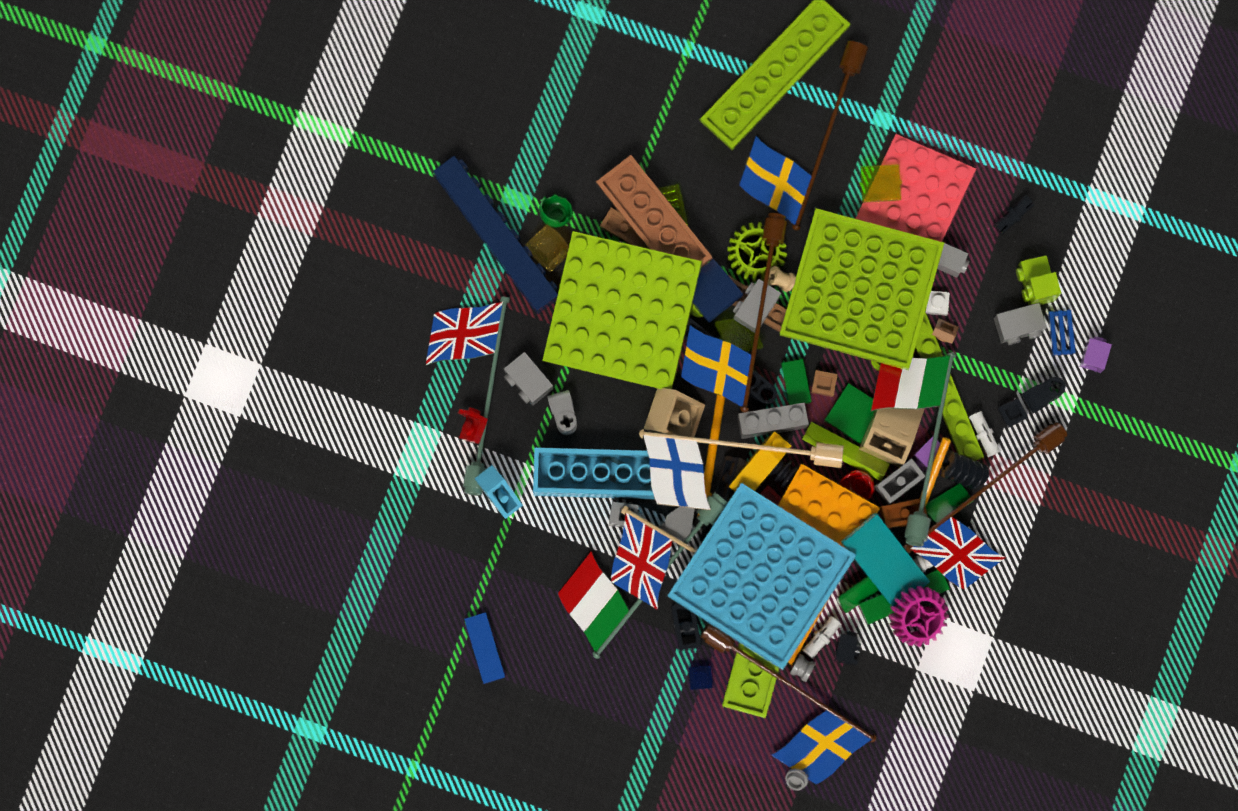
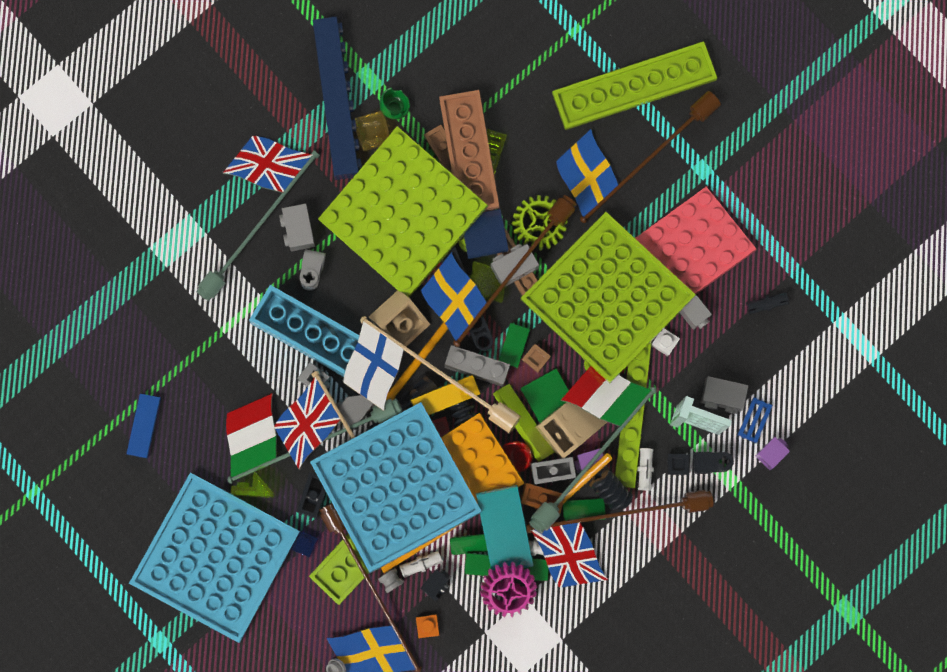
camera: 25 degrees right, 0 degrees up
(473, 426) = (232, 242): red bracket -> none
(498, 492) = (222, 305): medium azure brick -> none
(622, 736) = (214, 557): none -> medium azure plate
(629, 649) = (259, 488): none -> clear neon green slope
(781, 279) = (544, 252): tan bush -> none
(860, 693) = (427, 626): none -> orange plate
(880, 183) = (671, 219): clear neon green piece -> none
(945, 331) = (658, 368): medium nougat plate -> none
(997, 359) = (699, 418): none -> light aqua fence
(1038, 281) = (757, 368): lime brick -> none

